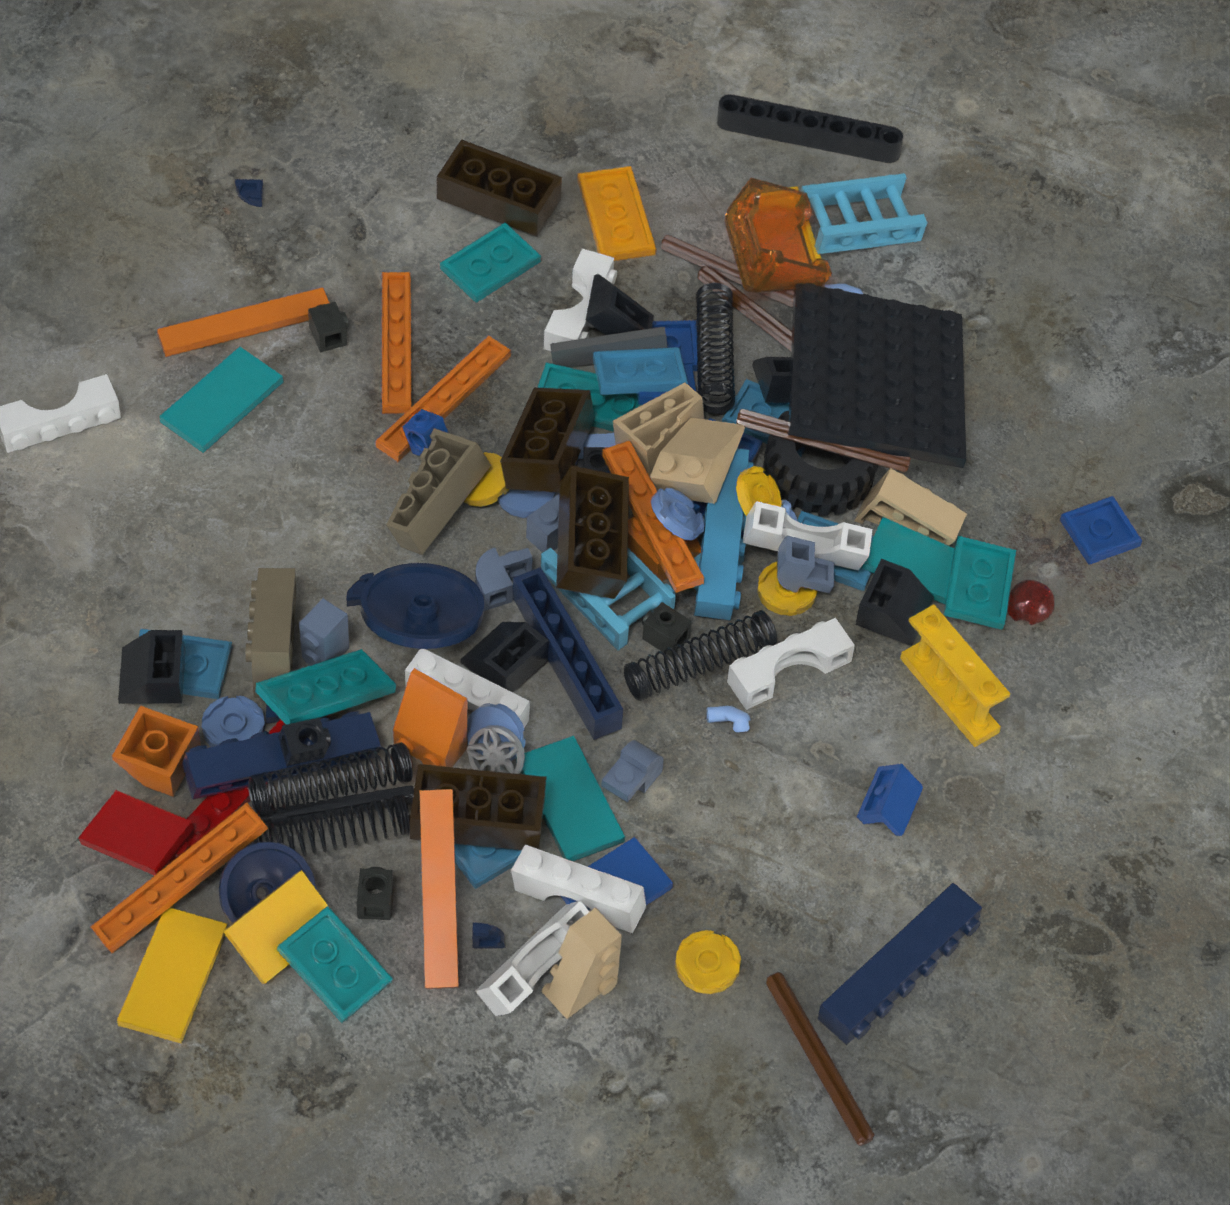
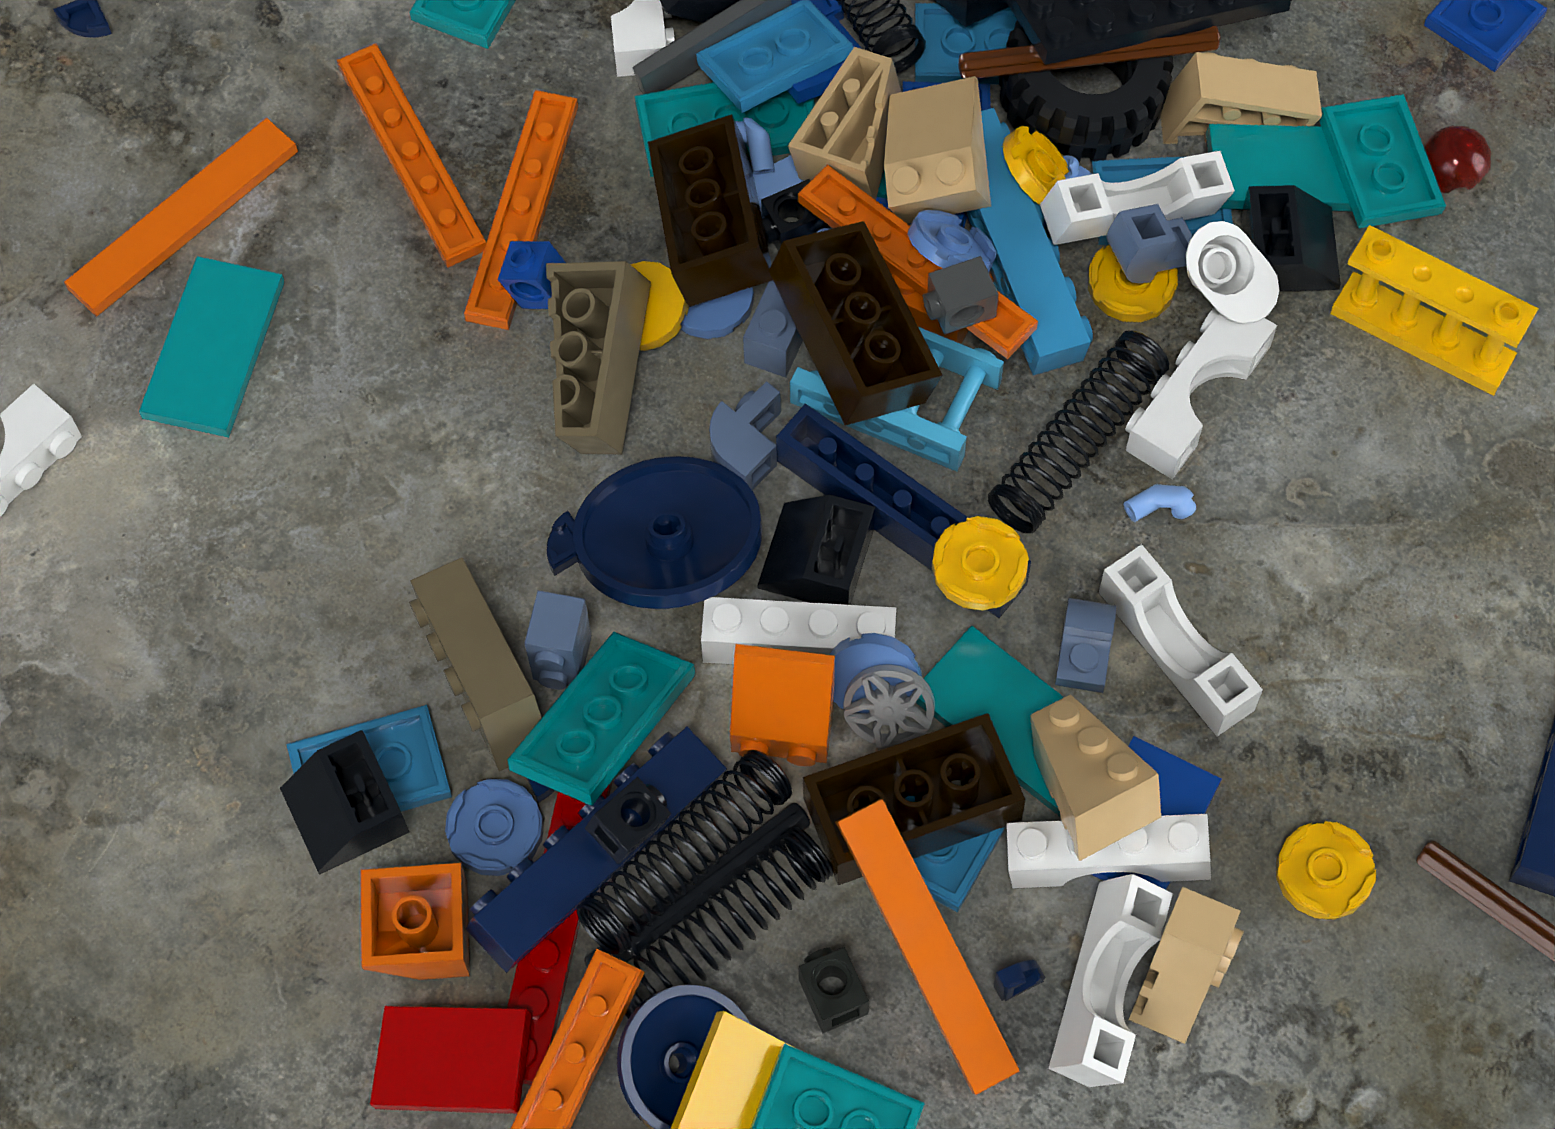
camera: 20 degrees left, 10 degrees up
(328, 326) = (306, 173): pearl dark grey brick -> none
(586, 837) = (1092, 776): none -> tan wedge
(591, 695) = (980, 563): none -> yellow tile
(601, 417) = (759, 145): none -> light blue arm
(661, 541) = (961, 295): none -> dark grey brick
(665, 628) = (1010, 413): pearl dark grey brick -> none
(685, 777) = (1206, 677): none -> white arch
(840, 601) = (1231, 272): none -> white piece
(891, 798) = (1432, 521): blue panel -> none

